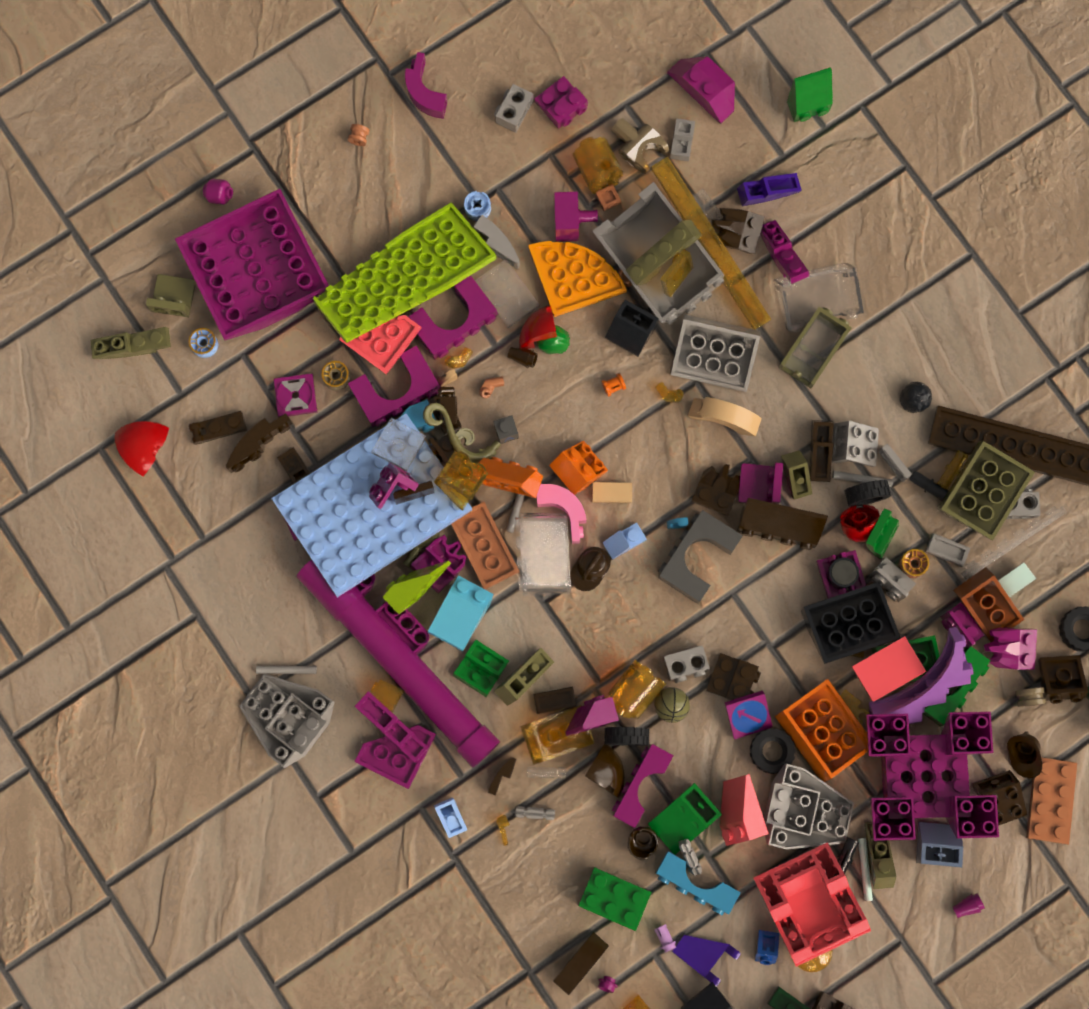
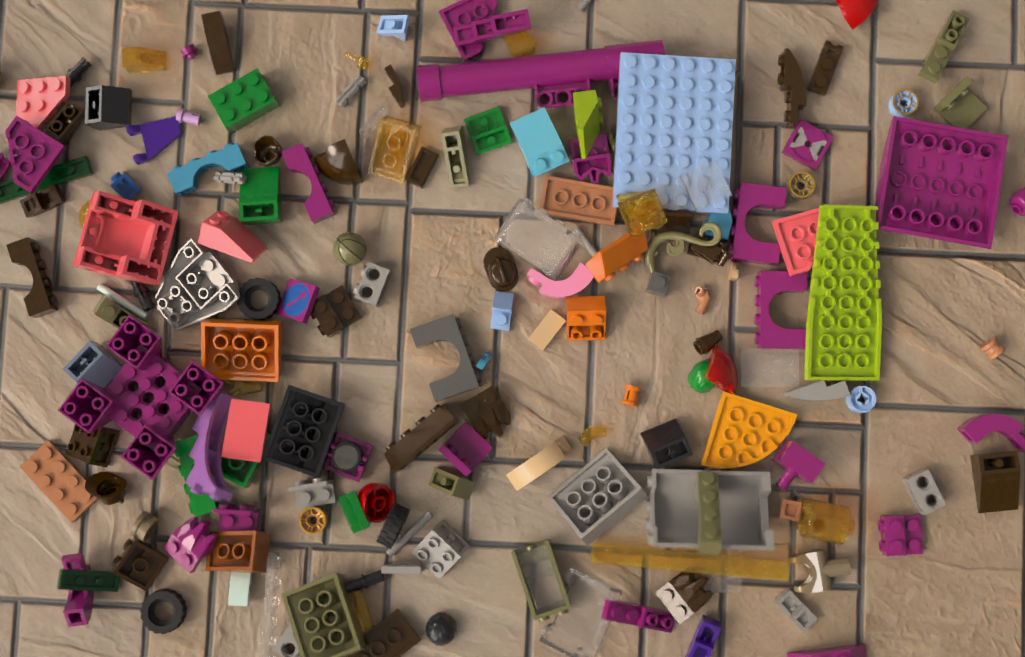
camera: 130 degrees right, 5 degrees up
(293, 465) = (750, 103): dark brown slope -> none
(389, 477) = (682, 158): magenta bracket -> none
(406, 495) = (658, 167): dark brown tile -> none
(459, 361) = (741, 289): clear yellow arm -> none
(463, 61) = (996, 481): none -> dark brown slope
(593, 715) = (385, 180): magenta slope -> none
(626, 736) = (351, 196): black tyre -> none
(635, 690) = (380, 228): clear yellow cylinder -> none
(677, 272) = (683, 512): clear yellow plate -> none
(821, 450) = (455, 518): dark brown slope -> none
(919, 940) = (40, 299): none -> dark brown arch
(947, 550) = (304, 555): light grey tile -> none
(970, 905) = (36, 355): magenta cone -> none

